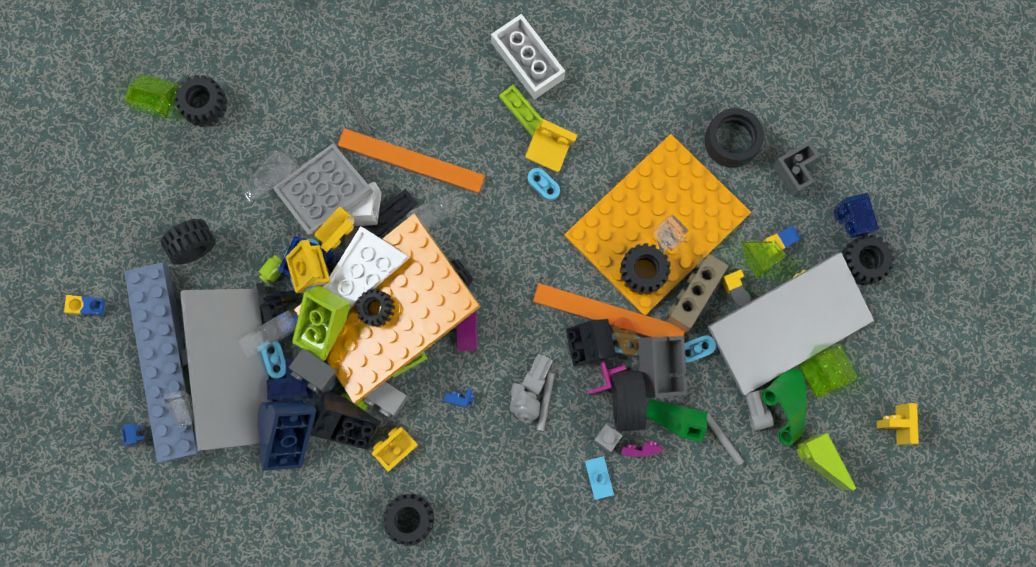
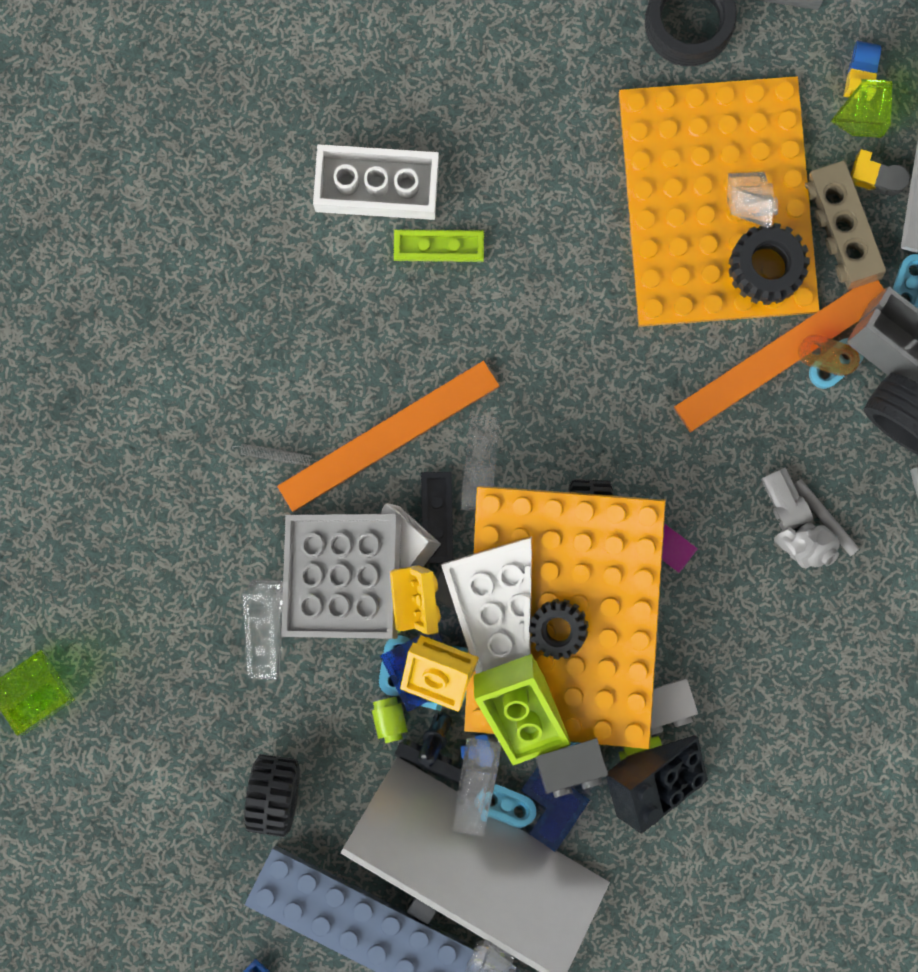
camera: 45 degrees left, 5 degrees up
(207, 113) = (66, 631): black tyre -> none
(284, 433) = (614, 861): dark blue brick -> none
(391, 524) = (863, 802): black tyre -> none
(394, 448) = (736, 745): yellow bracket -> none
(456, 398) = (735, 622): blue bracket -> none
(544, 184) = (554, 295): medium azure plate -> none
(549, 145) = (513, 250): yellow bracket -> none
(590, 342) = (800, 404): black slope -> none
(607, 374) = (858, 417): dark pink bracket -> none

